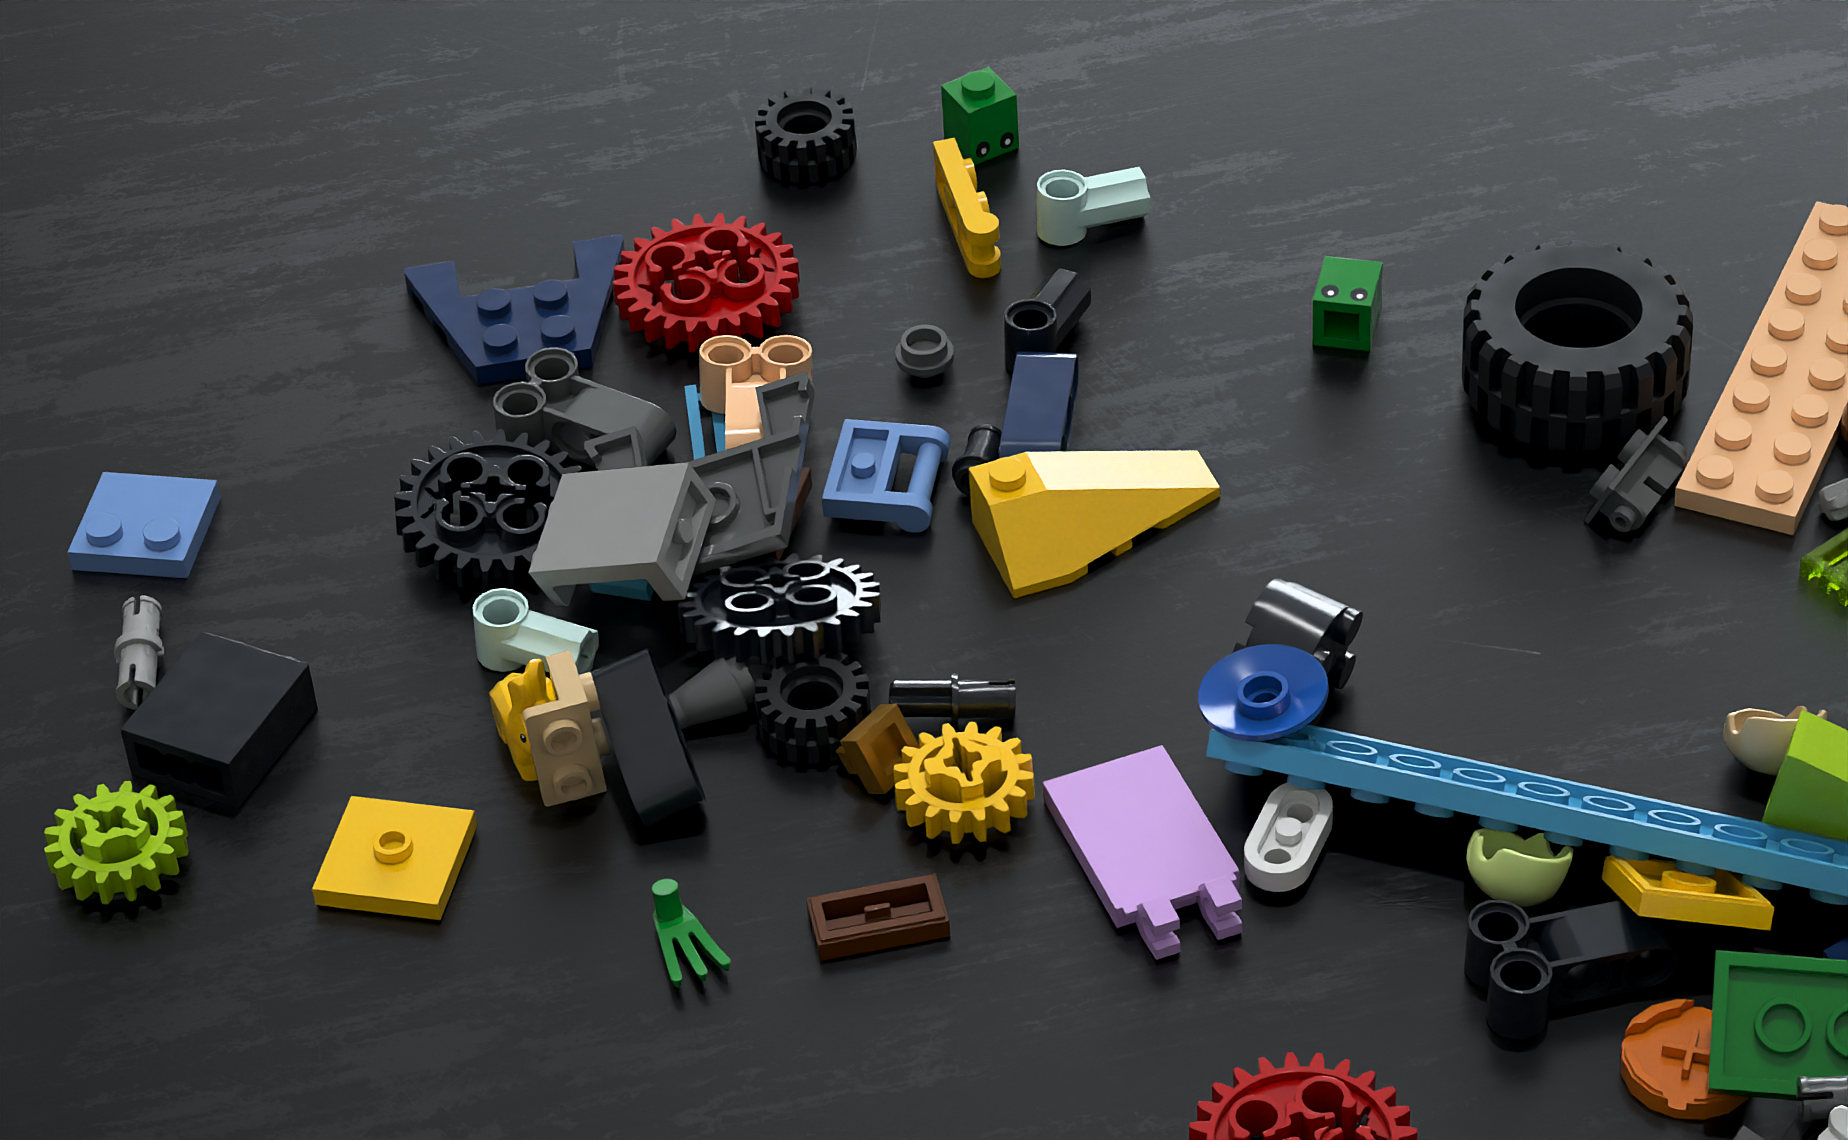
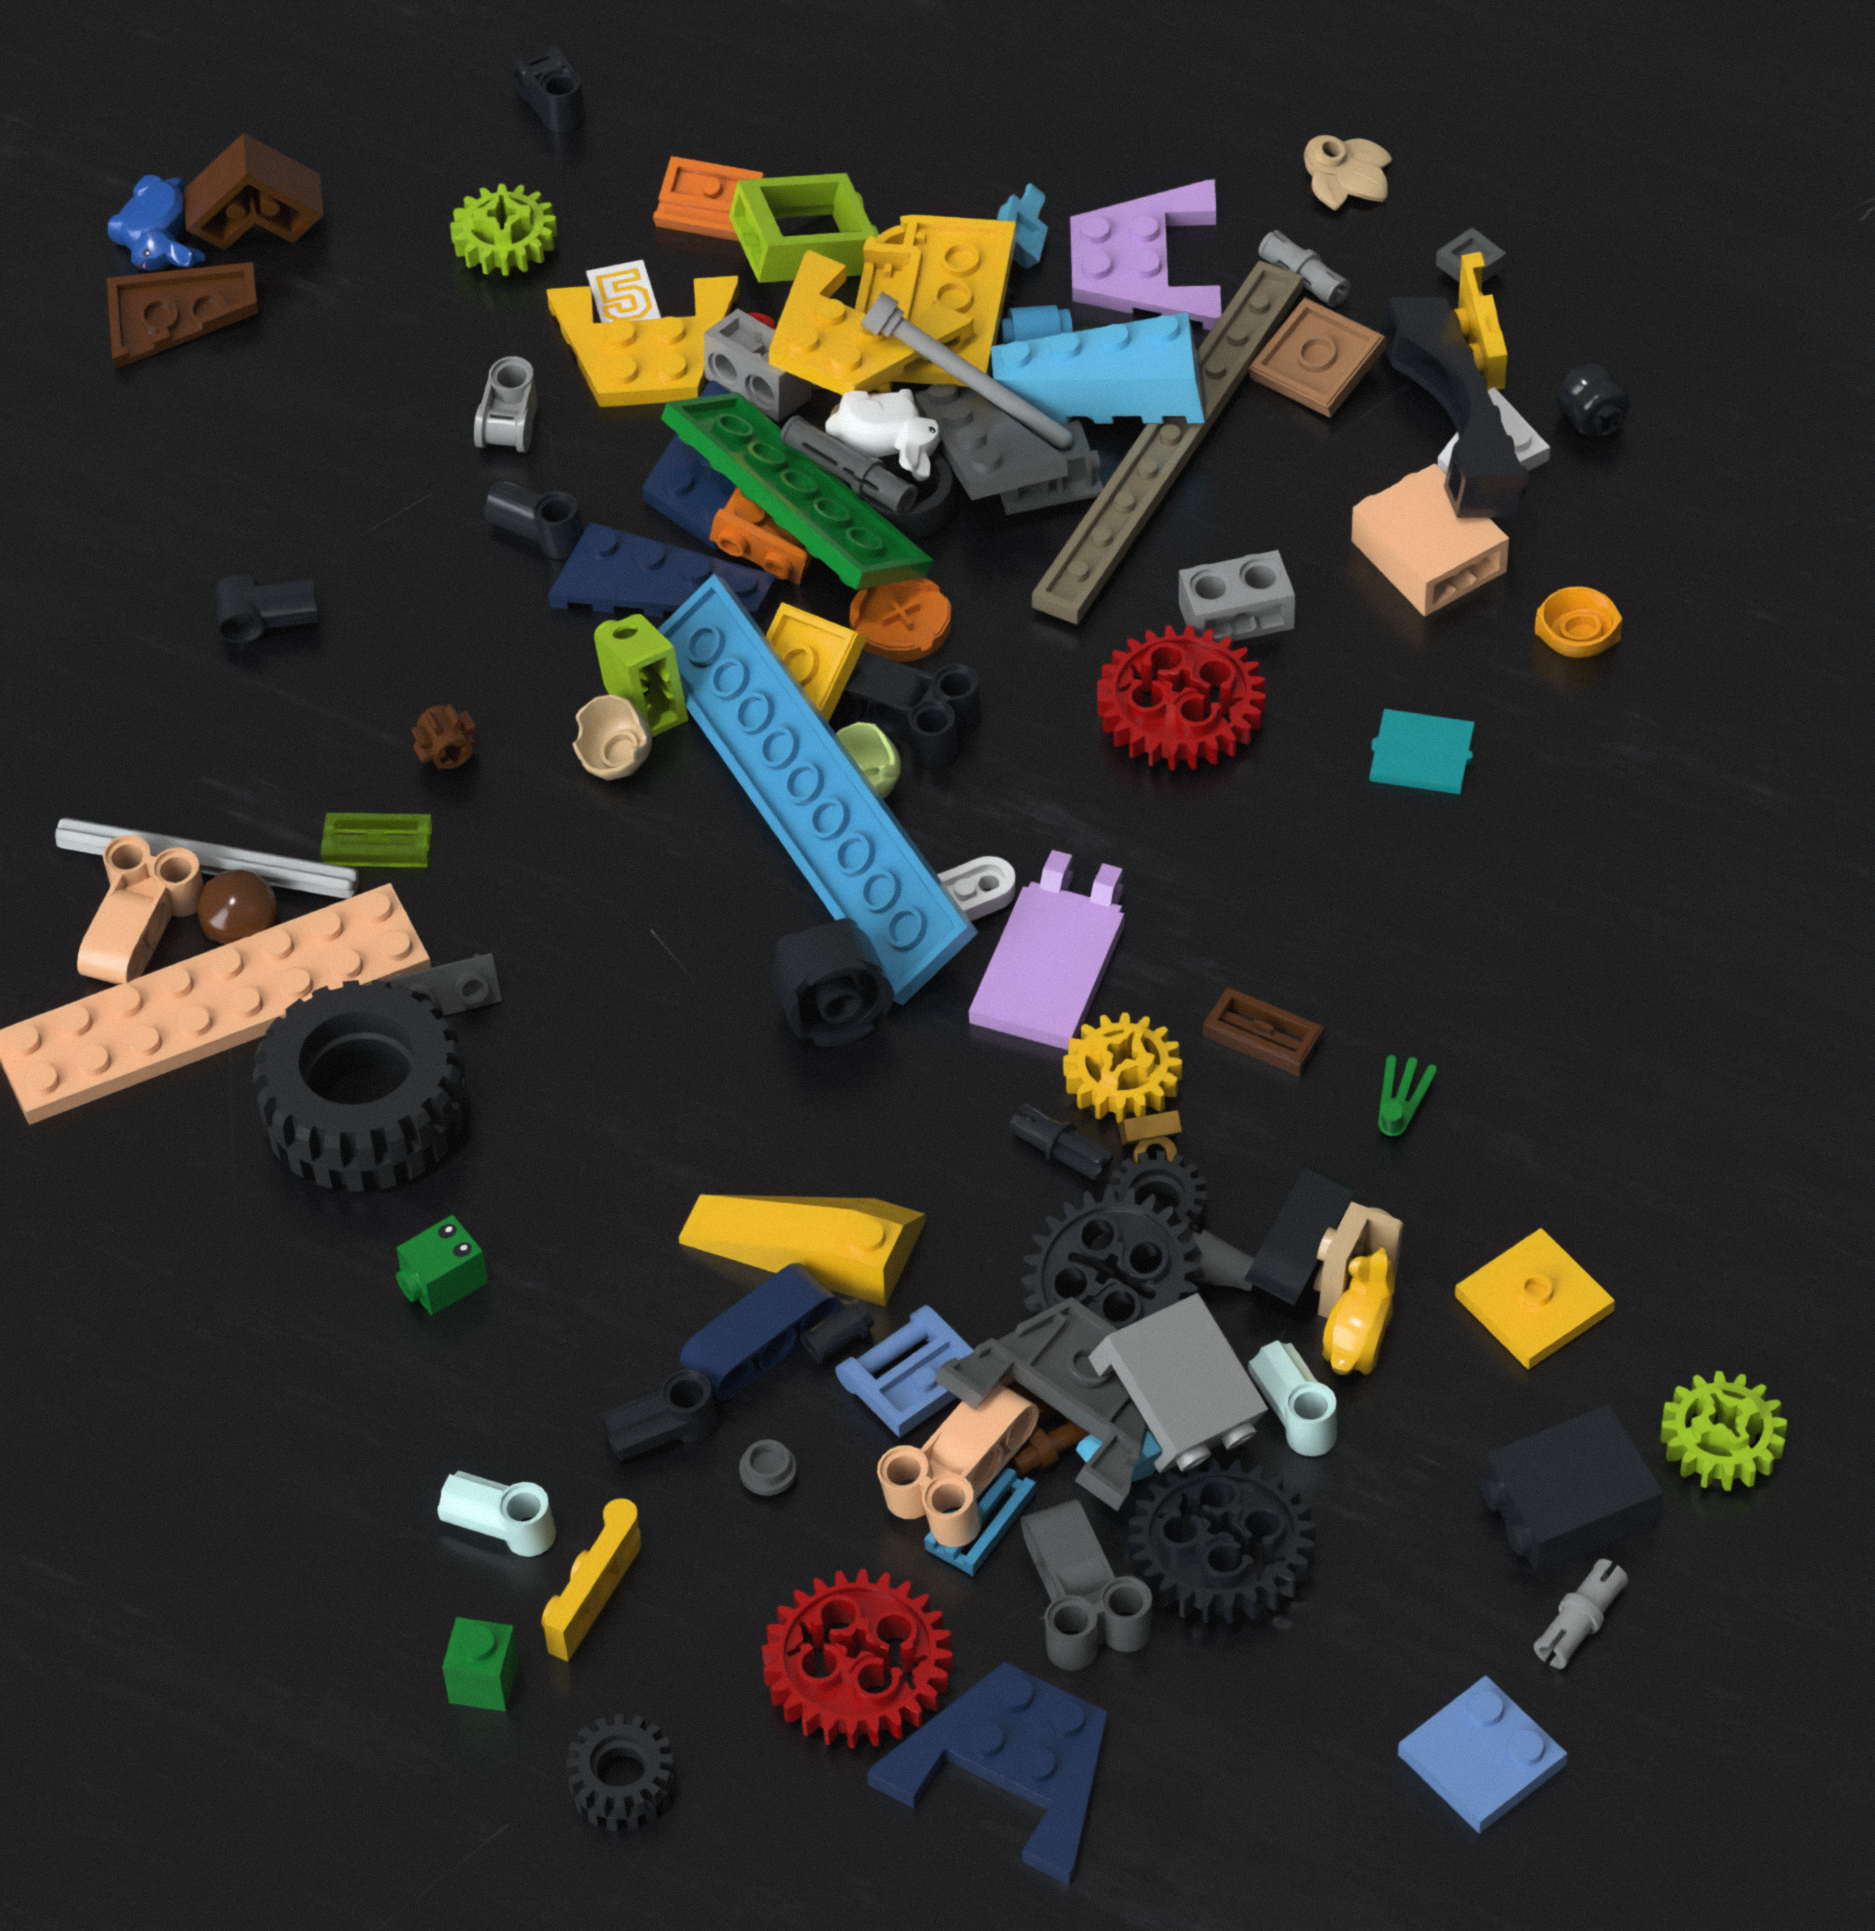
camera: 140 degrees left, 10 degrees up
(1263, 692) = (914, 905): blue dish -> none

